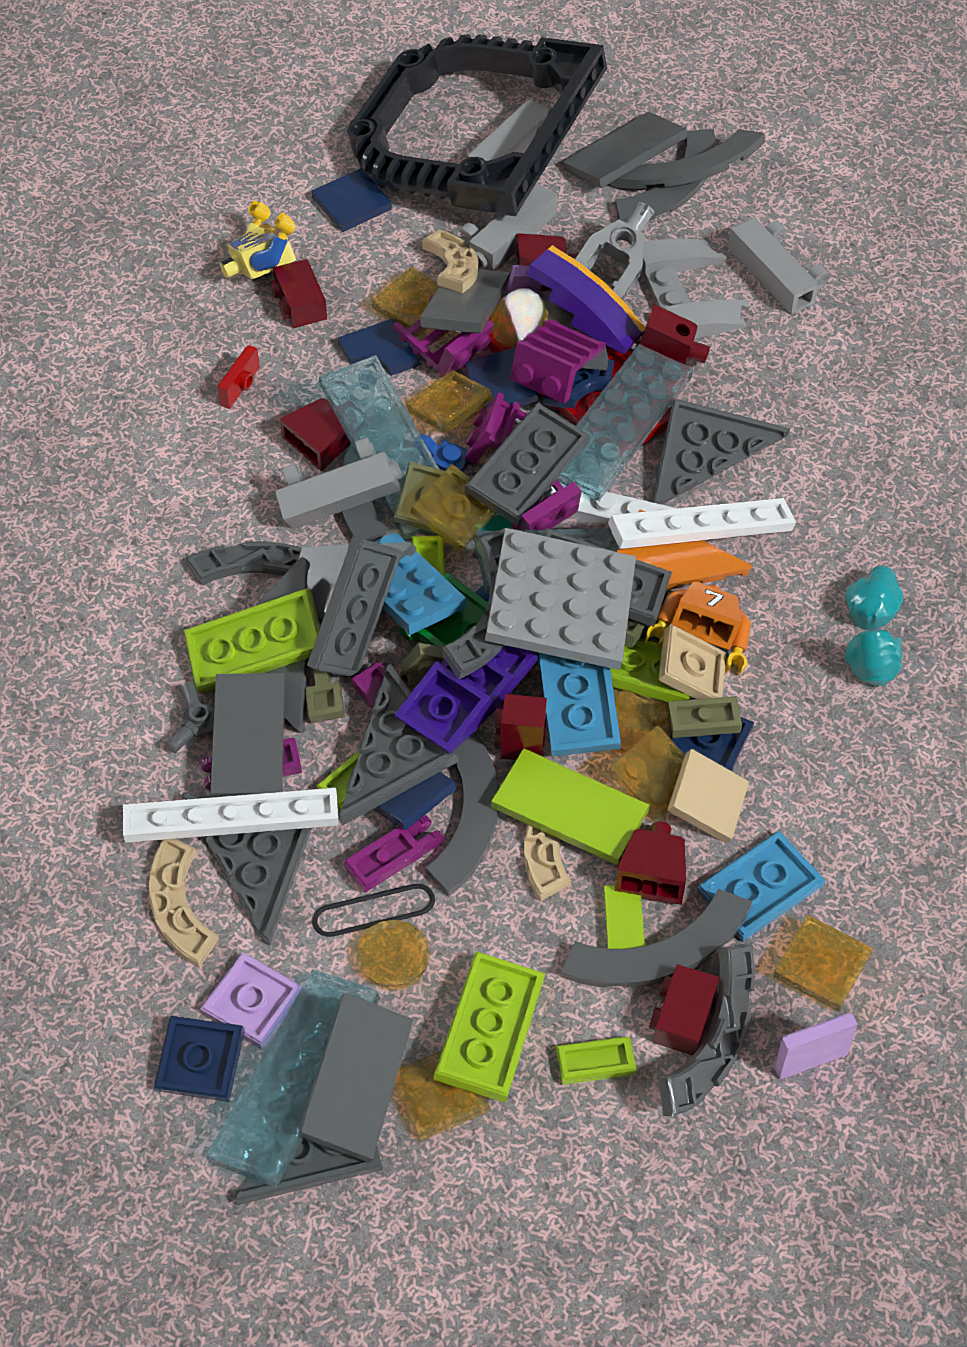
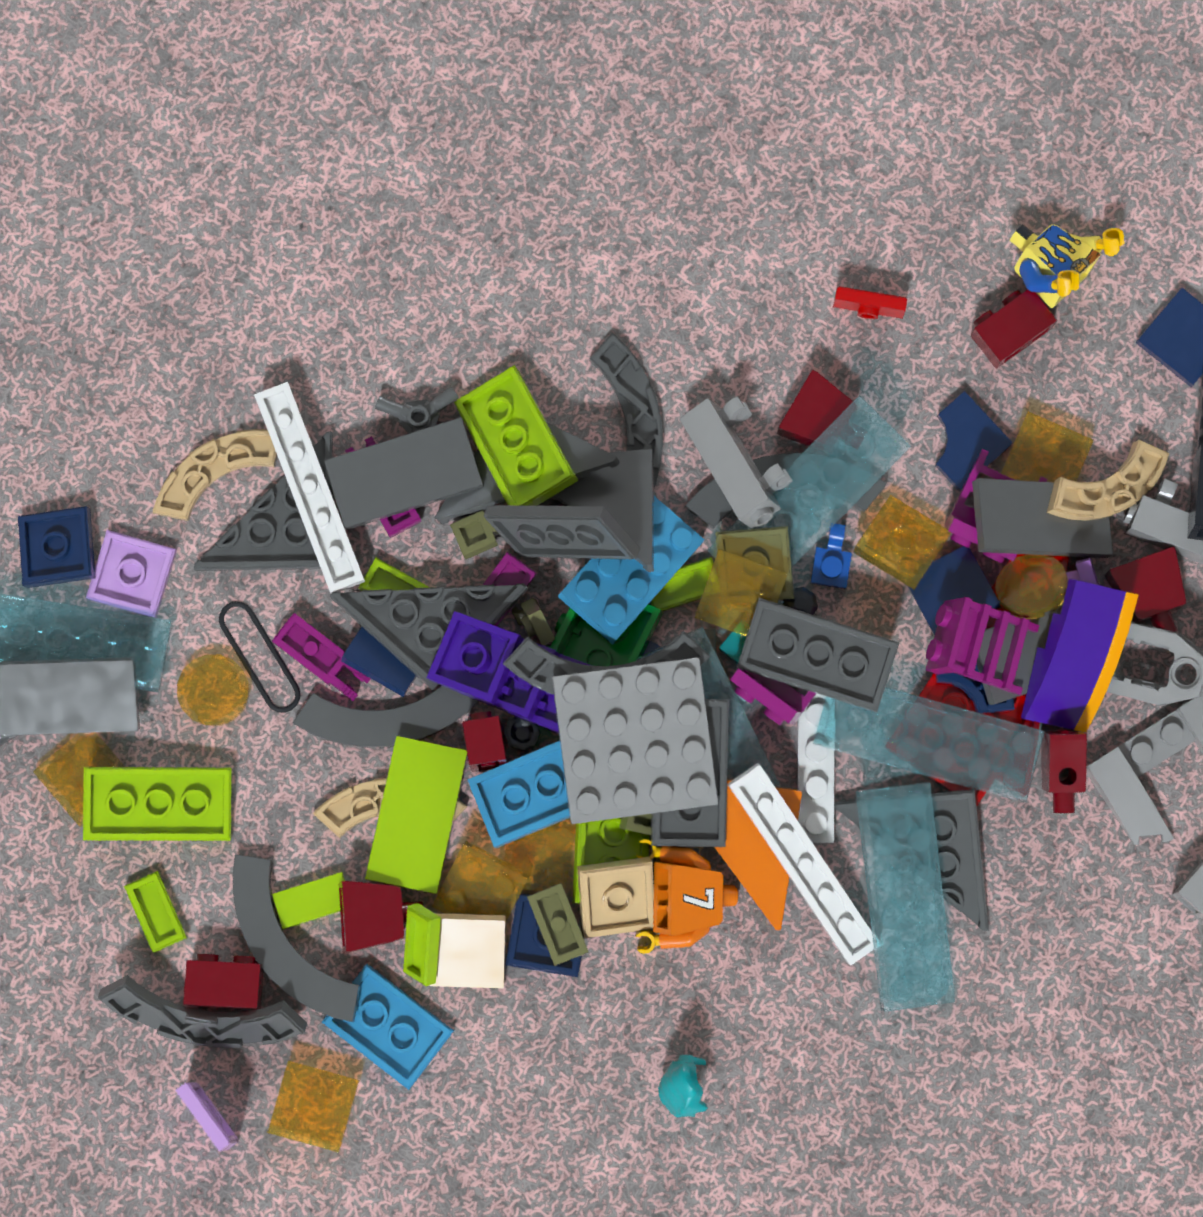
camera: 75 degrees right, 25 degrees up
(492, 427) = (877, 603): magenta plate -> none
(694, 825) = (421, 944): none -> lime tile
(748, 467) = (905, 896): none -> clear light blue plate
(875, 598) = (772, 1072): teal hair -> none

